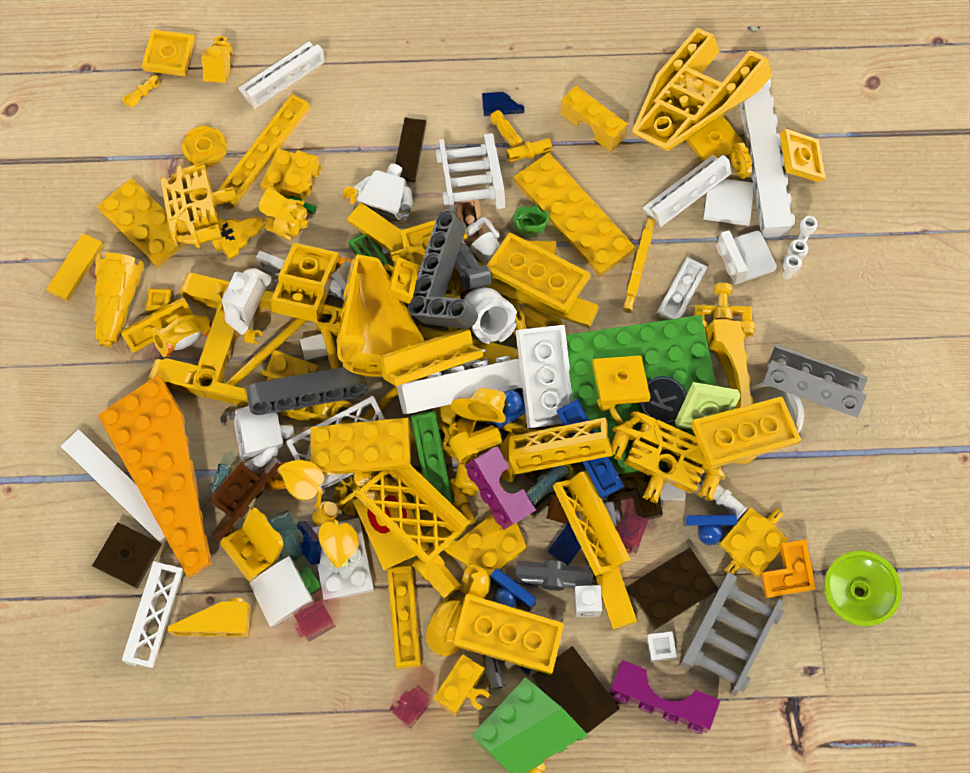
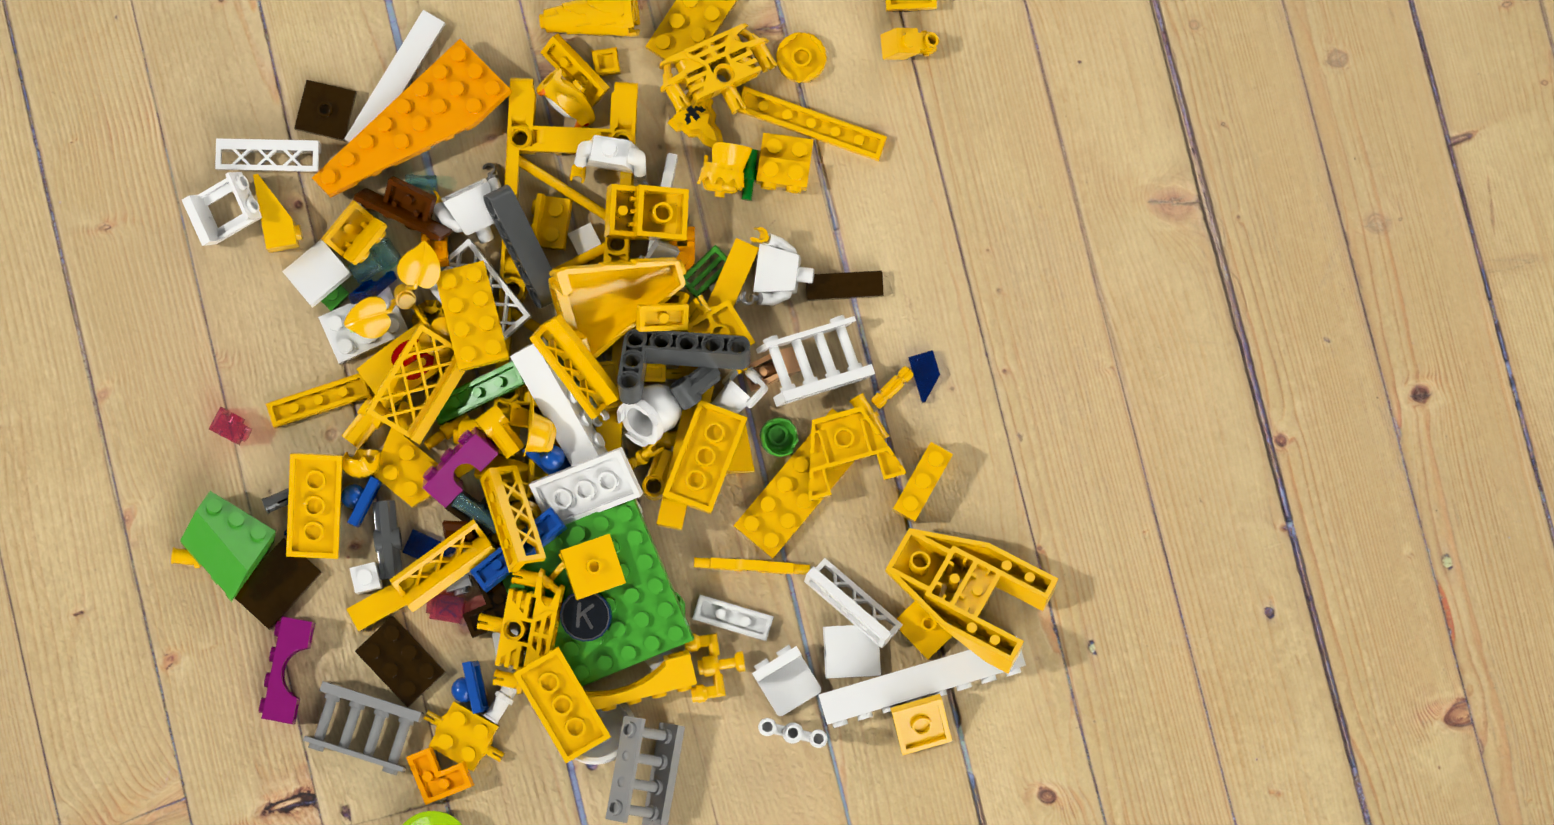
camera: 75 degrees right, 15 degrees up
(180, 694) = (202, 217): none -> white panel
(282, 74) = (904, 123): white fence -> none
(313, 621) = (293, 312): clear pink brick -> none
(443, 627) = (318, 441): yellow piece -> none
(461, 686) = (257, 471): yellow brick -> none
(545, 170) = (845, 439): none -> yellow wing
(661, 646) = (337, 659): white plate -> none
(705, 401) = (584, 659): yellowish green tile -> none
(741, 160) = (900, 656): yellow gear -> none

